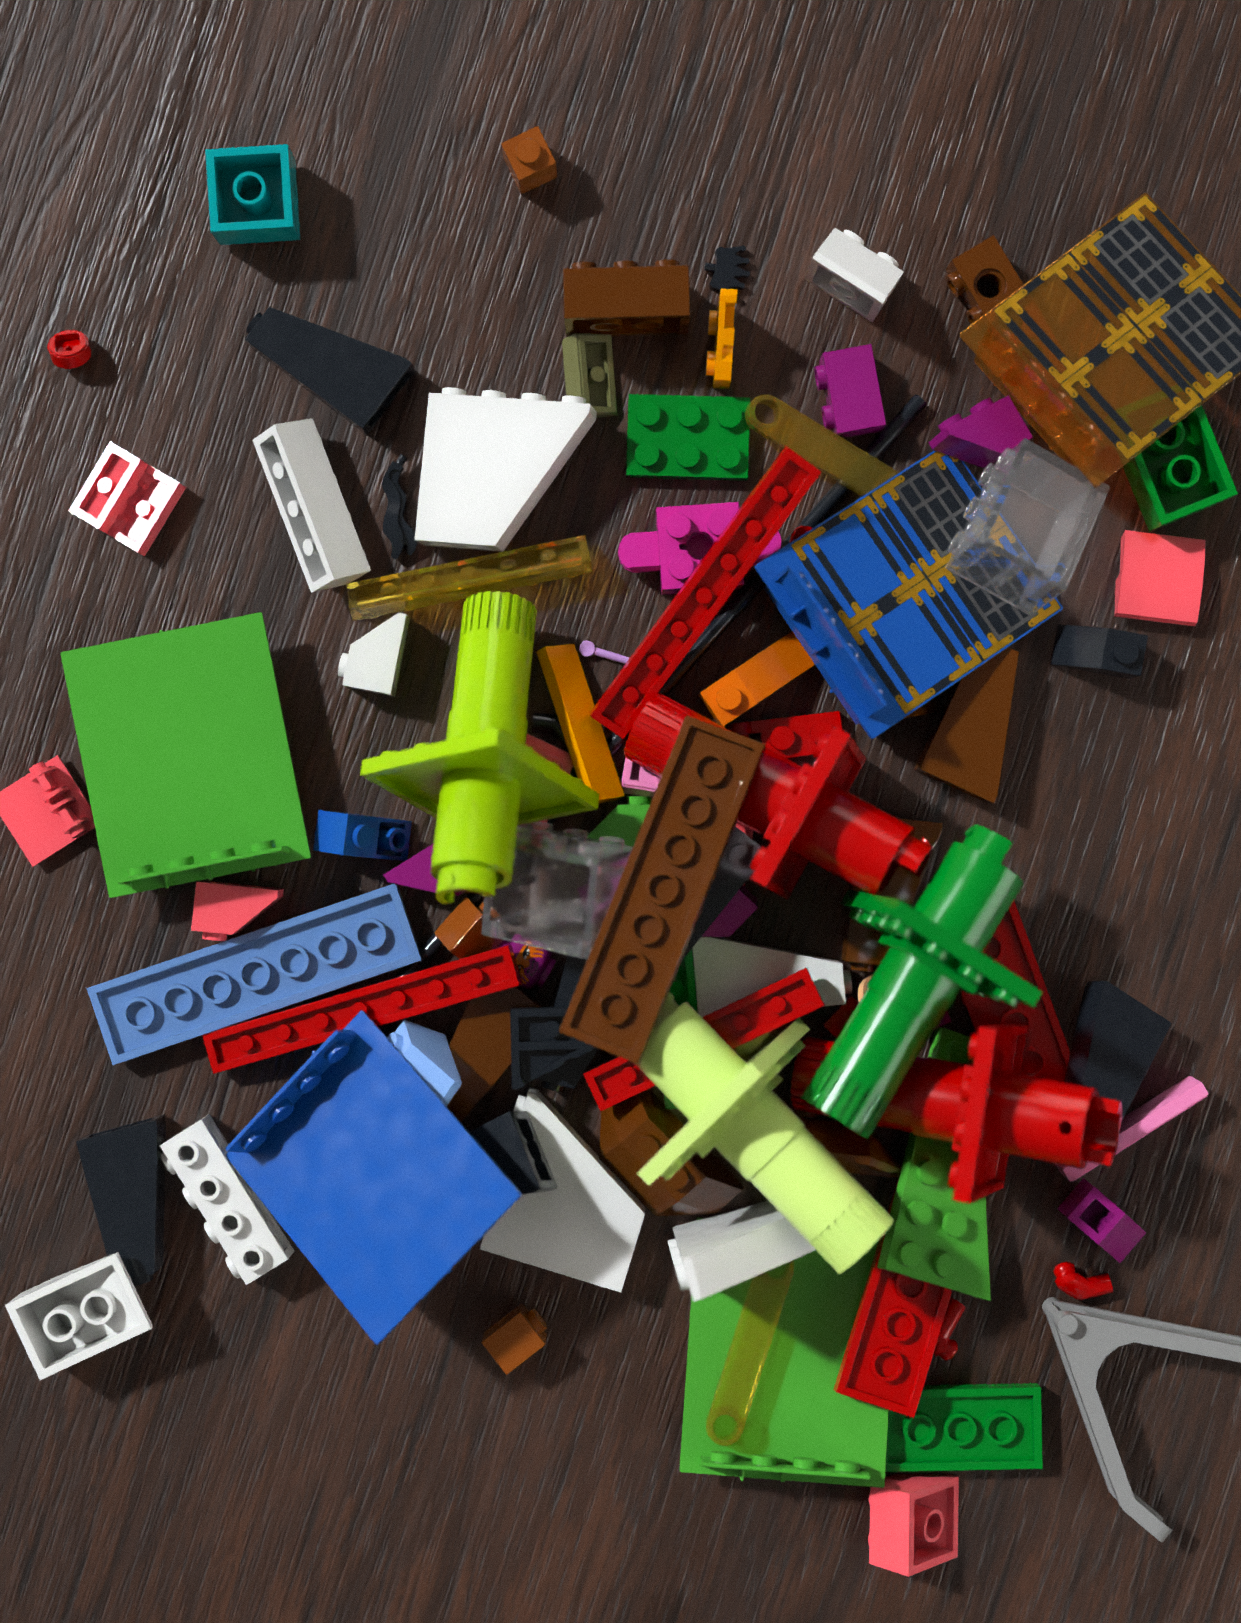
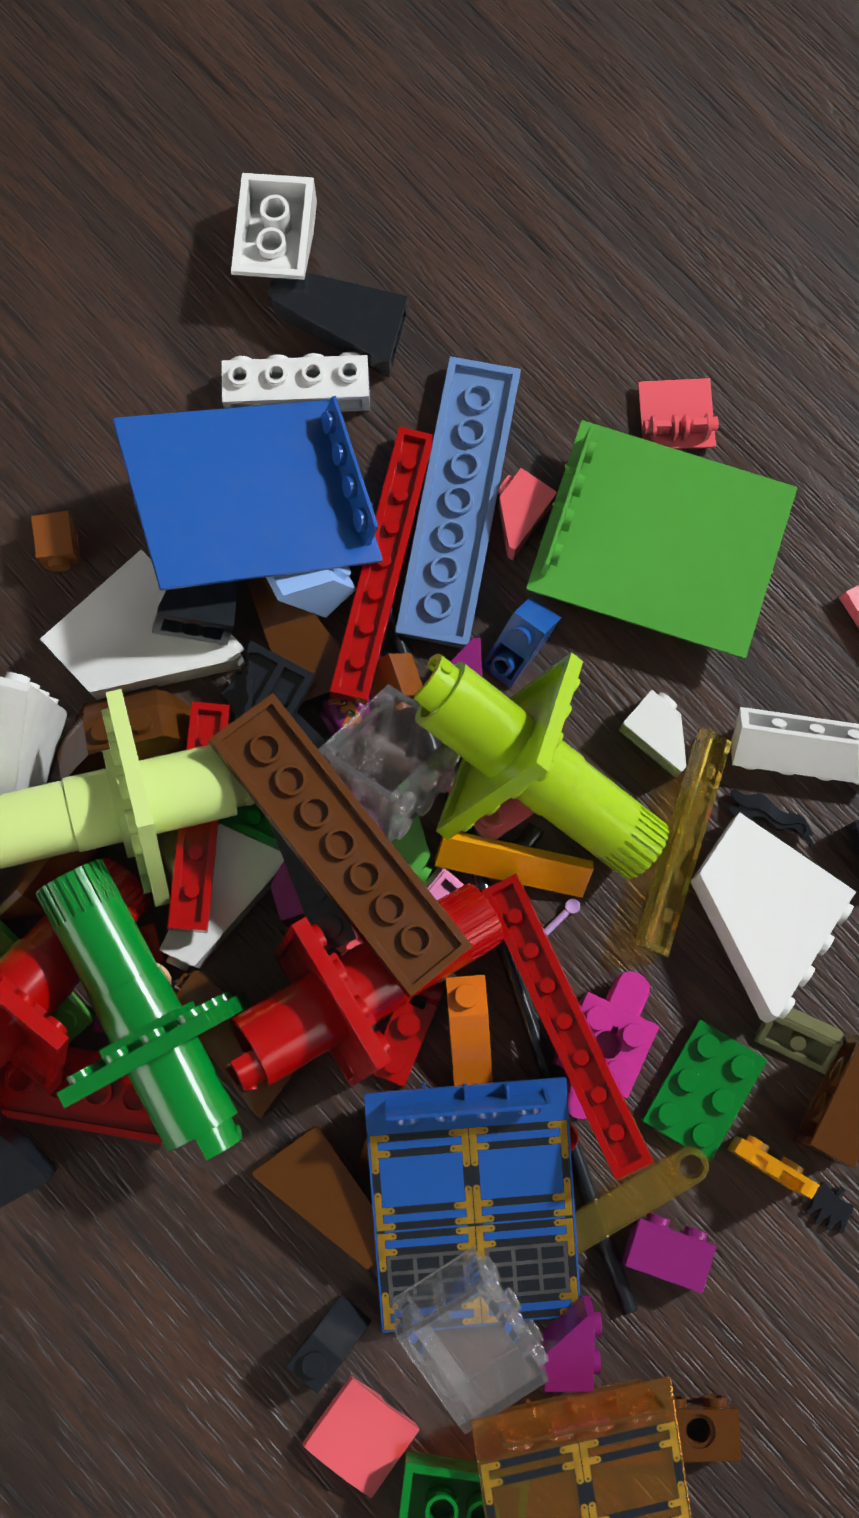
camera: 120 degrees right, 10 degrees down
(854, 273) = (771, 1315): white slope -> none

